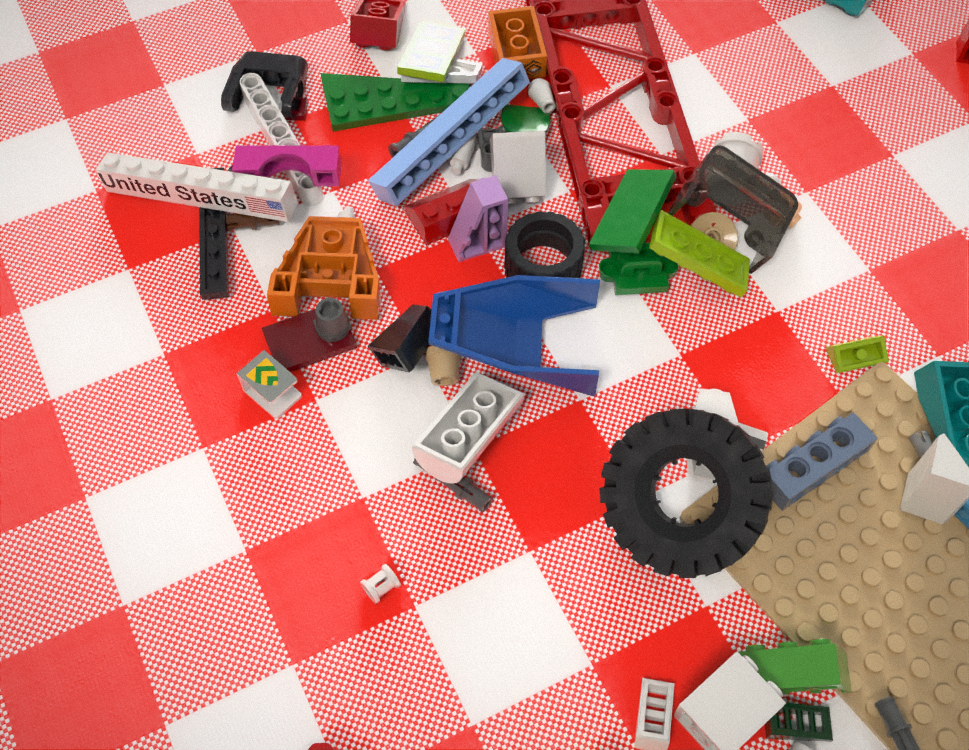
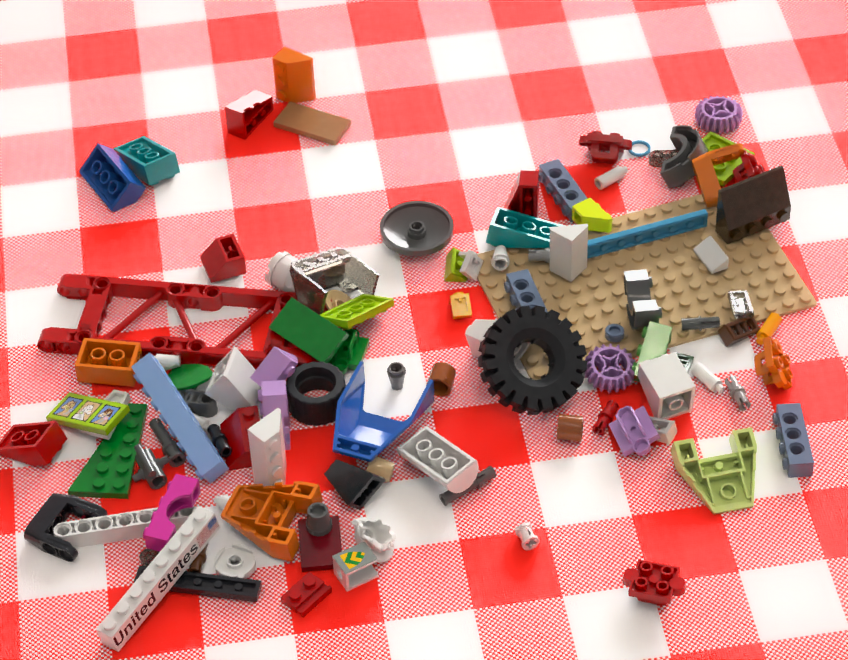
camera: 70 degrees left, 15 degrees down
(224, 347) = (306, 594): none -> red plate
(256, 270) = (239, 553): none -> white plate
(318, 391) = (376, 535): none -> white hair
(373, 130) = (150, 467): none -> dark grey pin
(402, 227) = (268, 450): none -> slope
(435, 182) = (219, 440): none -> black pin
(542, 190) = (276, 366): none -> lavender slope
(600, 586) = (570, 427): none -> dark orange piece
(611, 334) = (396, 375): none -> dark grey cone
(628, 684) = (634, 430): none -> lavender piece
(629, 391) = (443, 377): none -> dark orange piece
(646, 633) = (605, 417): none -> red pin
(733, 98) = (223, 259): none -> red slope
(756, 617) = (608, 361): none -> lavender gear
(780, 376) = (460, 305): none -> yellow bracket
(820, 600) = (614, 332): none -> sand blue tile
(860, 366) = (471, 264): none -> white bracket
(887, 623) = (640, 306): none -> dark grey brick
(890, 399) = (500, 258): none -> white cone
(894, 281) = (416, 228): none -> dark grey dish

